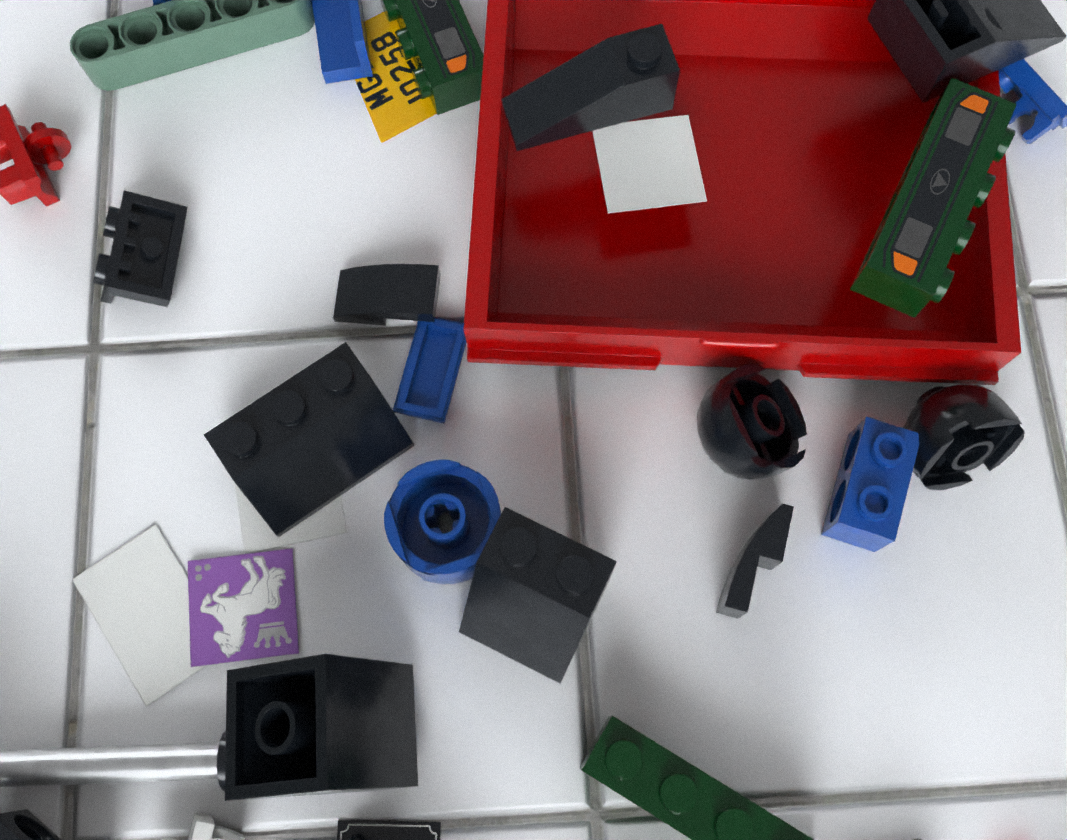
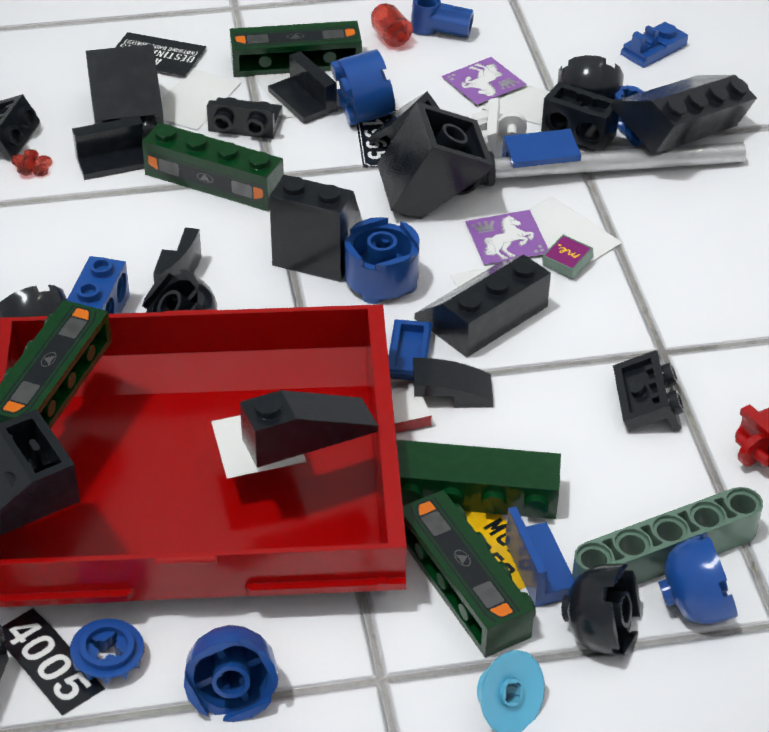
camera: 170 degrees right, 30 degrees down
(130, 780) = (541, 148): none -> blue panel
(164, 536) = (567, 256): none -> tile
(382, 130) = (481, 477): none -> dark green brick
(452, 257) = (410, 411): none -> white tile

